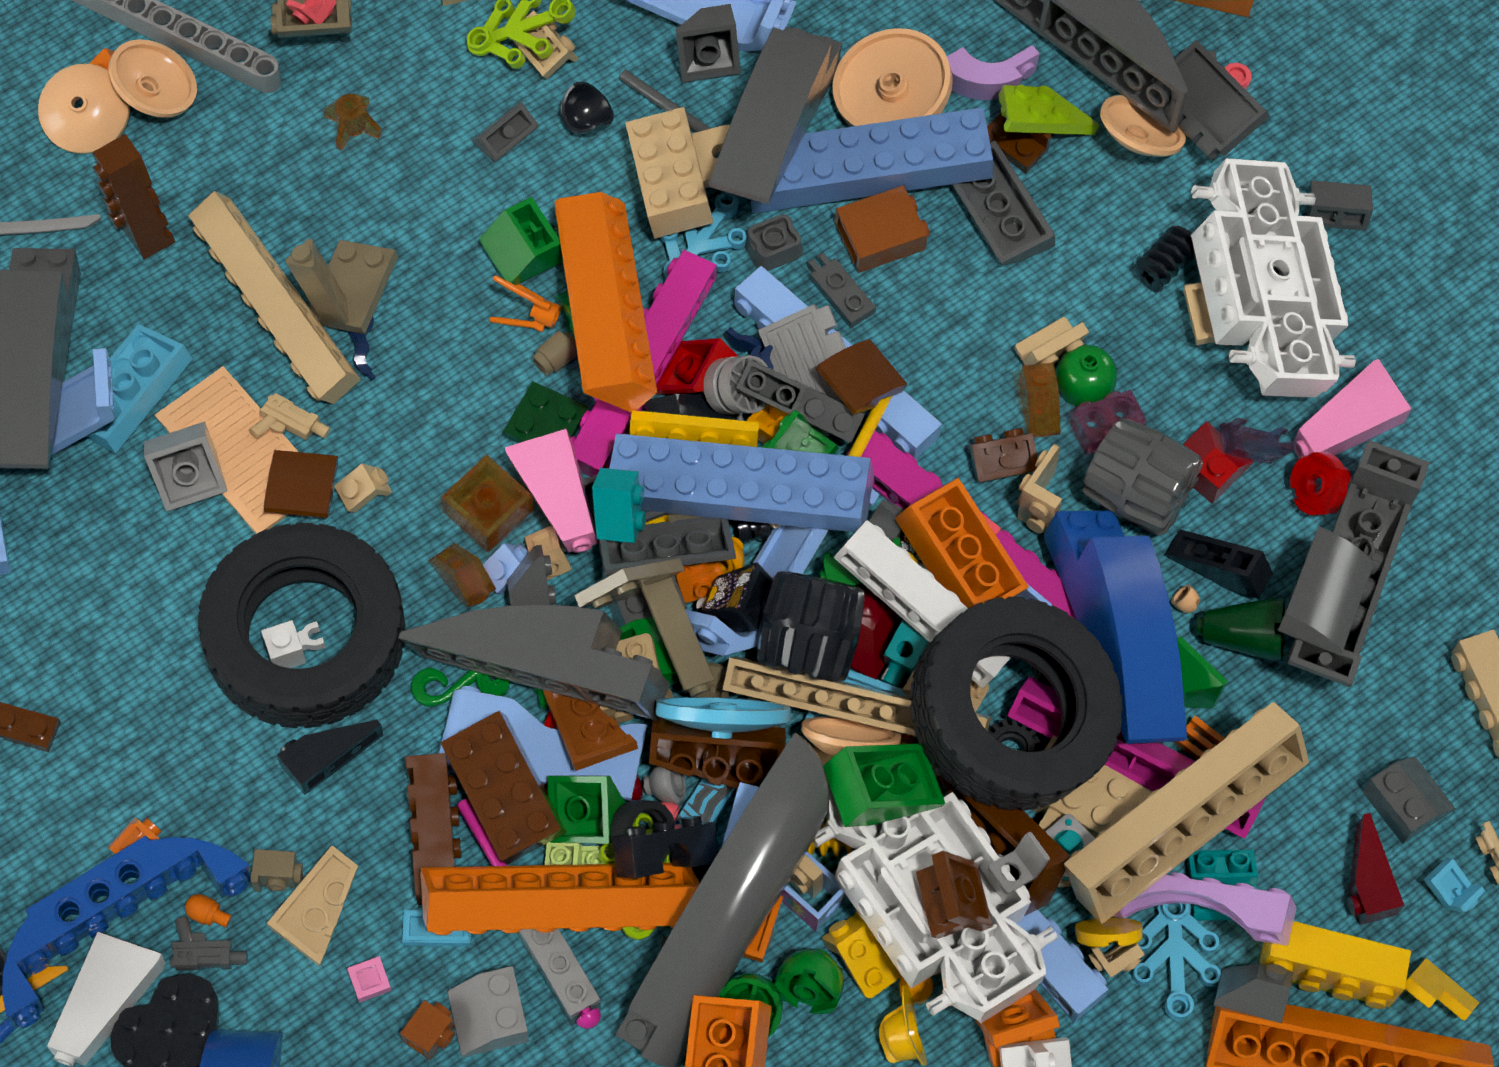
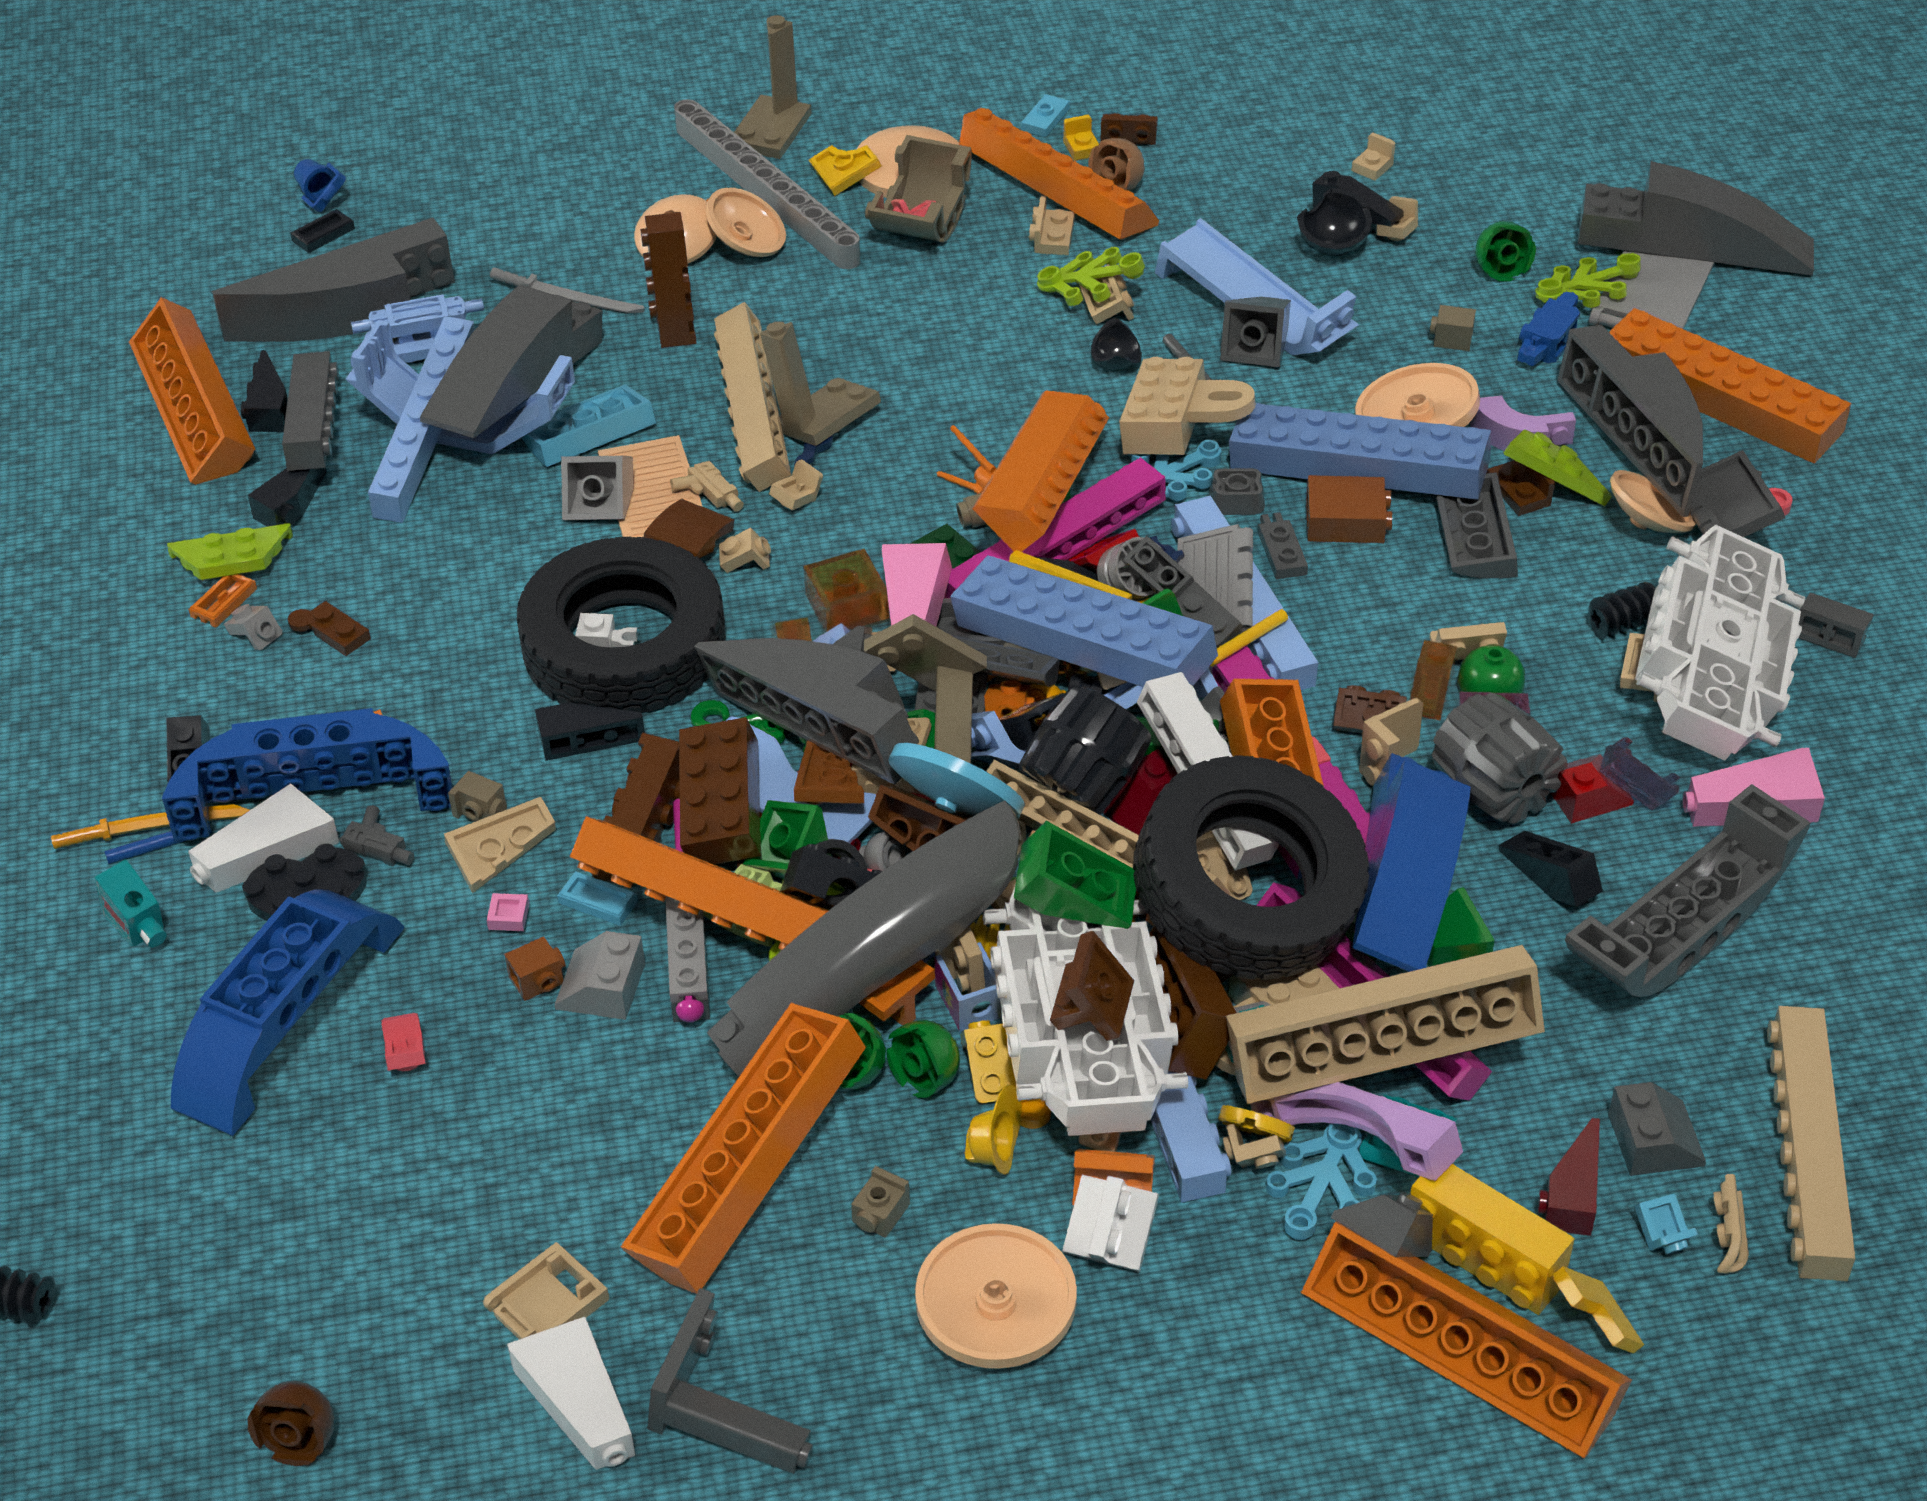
camera: 30 degrees right, 20 degrees down
(206, 910) = (398, 810): orange cylinder -> none
(352, 118) = (902, 298): clear orange brick -> none
(374, 391) = (799, 488): none -> tan bracket
(506, 132) = (1034, 347): dark grey slope -> none
(522, 242) = (995, 418): green slope -> none
(618, 505) = (956, 601): teal brick -> none
(775, 112) = (1287, 368): dark grey slope -> none
(861, 376) = (1252, 588): reddish brown slope -> none
(1028, 859) = (1185, 999): light grey bracket -> none
(1186, 599) = (1499, 887): light nougat hinge -> none
(1246, 628) = (1546, 921): dark green cone -> none
(1327, 592) = (1640, 895): dark grey slope -> none
(1334, 483) = (1690, 826): red plate -> none

